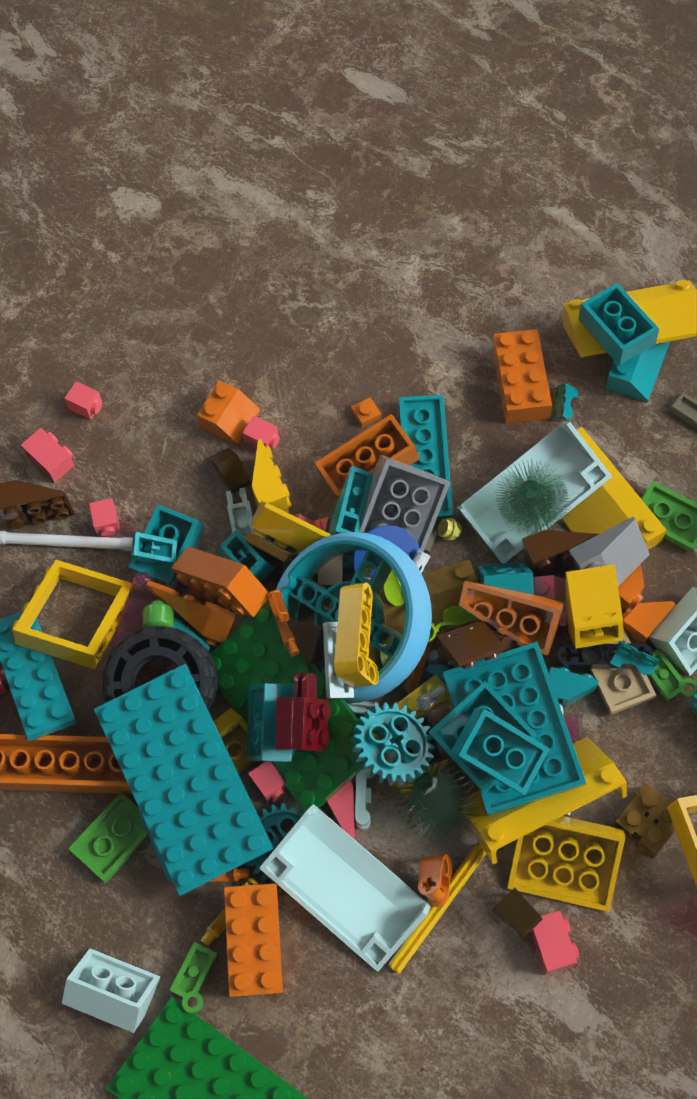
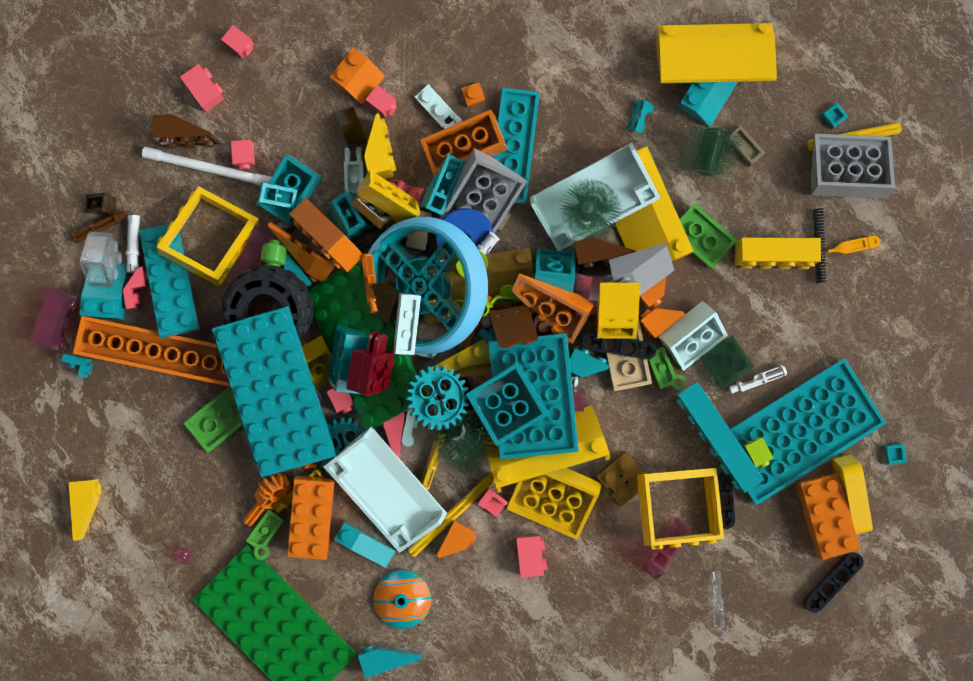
camera: 10 degrees right, 20 degrees up
(86, 1027) = (183, 555): none -> clear pink hinge
(110, 990) = (203, 532): light aqua slope -> none
(140, 582) = (264, 219): clear pink plate -> none
(191, 922) = (268, 496): none -> orange gear
(324, 430) = (437, 107): none -> light aqua plate
(329, 967) = (364, 544): none -> slope
(353, 637) = (420, 310): yellow beam -> none
(392, 1057) = (403, 585): none -> orange dish
(399, 842) = (432, 463): none -> yellow piece
(427, 700) = (472, 362): clear arm -> none
(435, 879) = (453, 494): orange piece -> none
(449, 529) = (520, 214): light yellow plate -> none
(451, 937) = (457, 539): none -> orange slope
(488, 880) = (492, 502): none -> coral panel
(500, 750) = (514, 422): teal slope -> none
(517, 913) = (508, 532): dark brown slope -> none
(521, 376) = (609, 86): orange brick -> none
(618, 324) = (697, 61): teal brick -> none
(623, 657) = (632, 351): teal piece -> none
(657, 419) = (710, 152): none -> clear green piece

